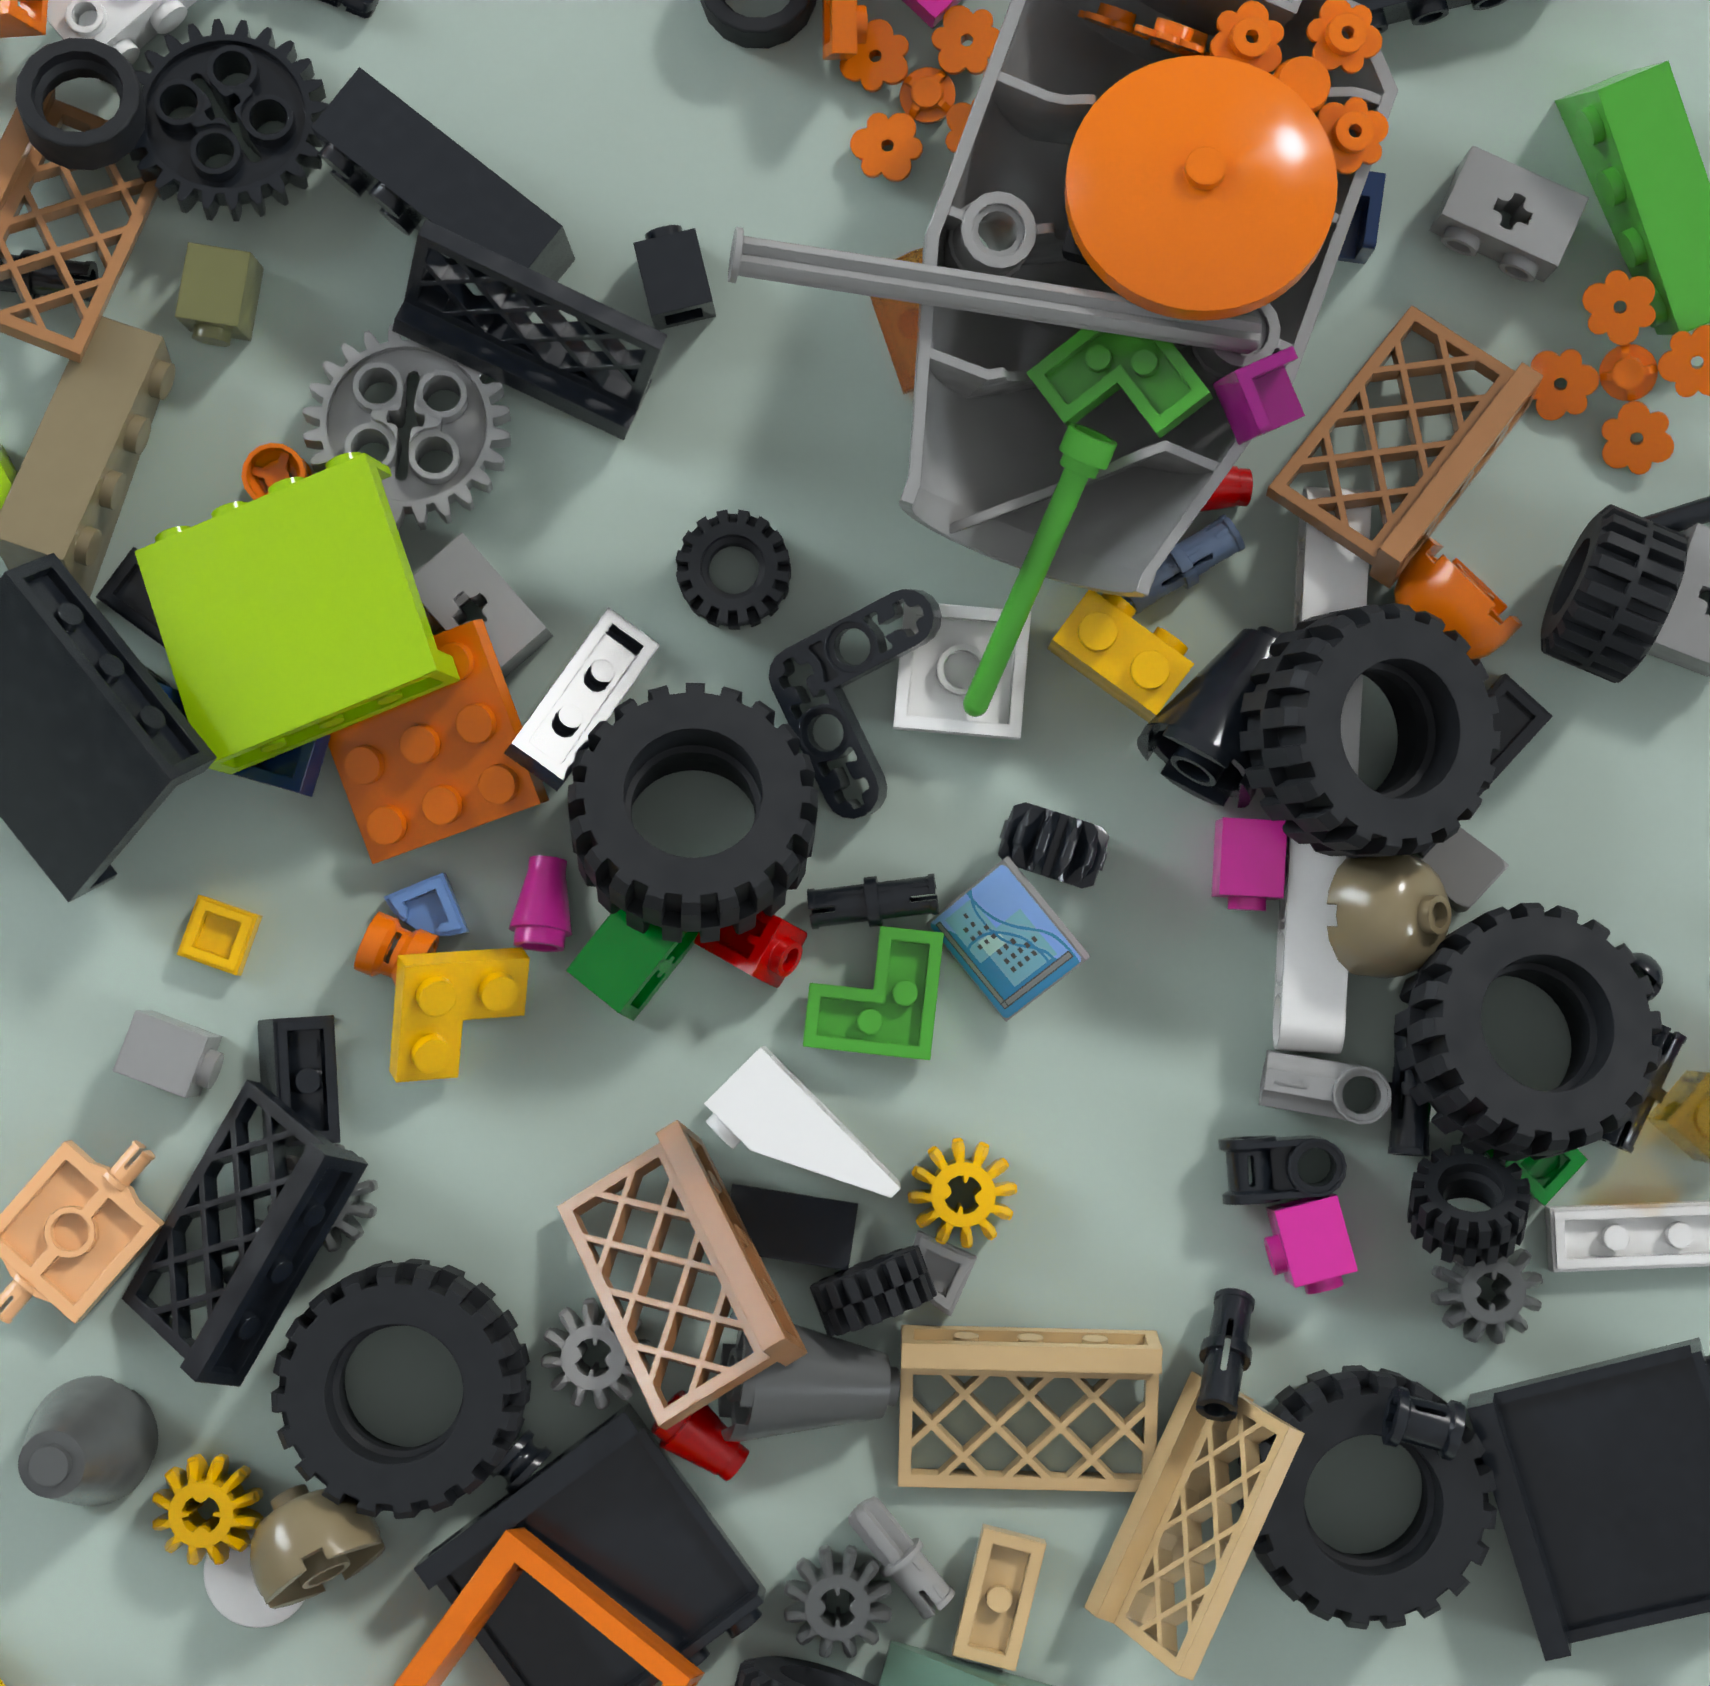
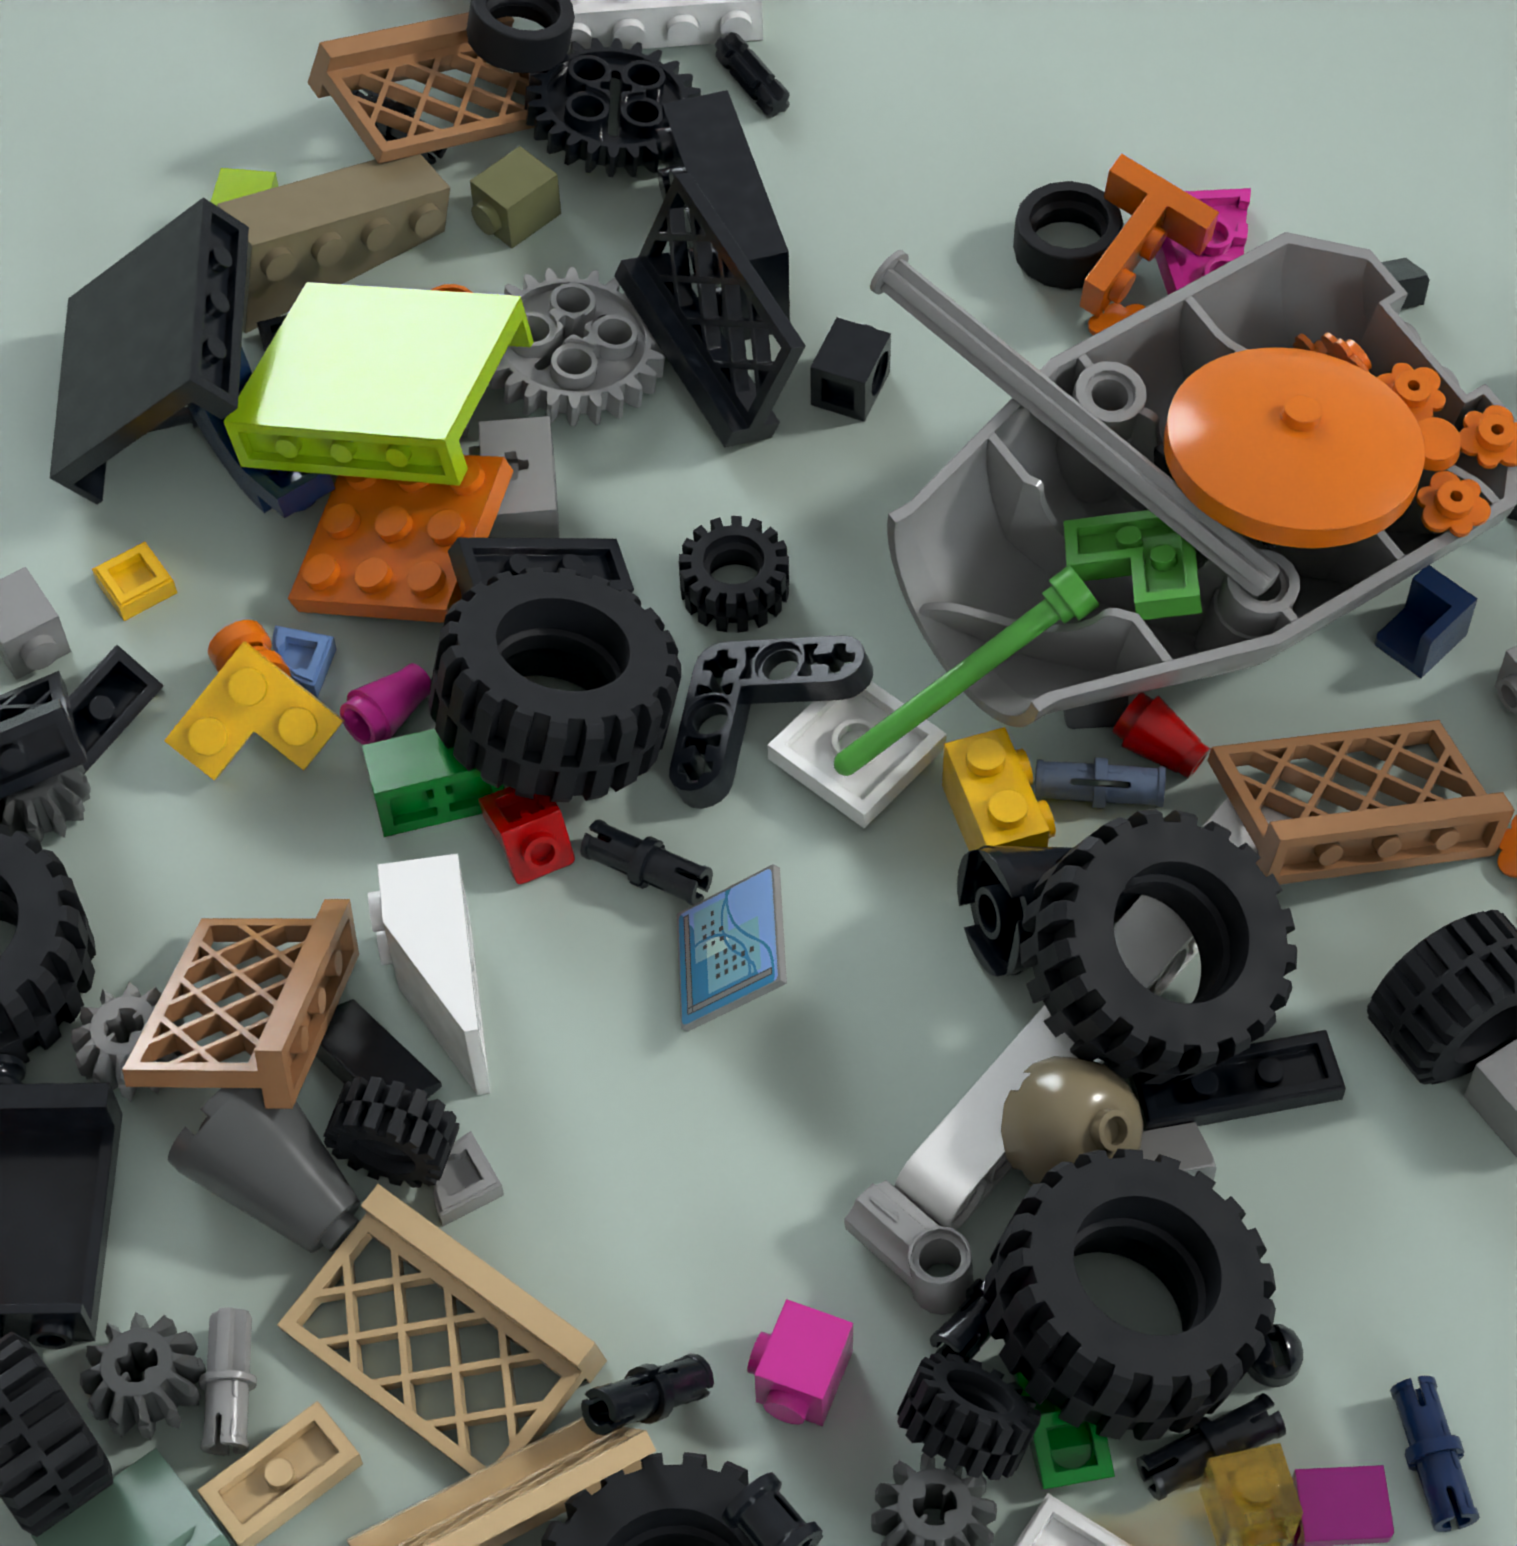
camera: 35 degrees right, 30 degrees down
(701, 1442) = (143, 1156): red cone -> none
(895, 1014) = (593, 953): bright green plate -> none
(983, 1194) = (557, 1124): yellow gear -> none
(1054, 845) = (827, 900): black gear -> none
(1249, 862) = (982, 1022): dark pink brick -> none
(1259, 396) = (1242, 616): magenta panel -> none
(1275, 1168) = (821, 1277): black piece -> none
(1455, 597) = (1324, 947): orange cylinder -> none

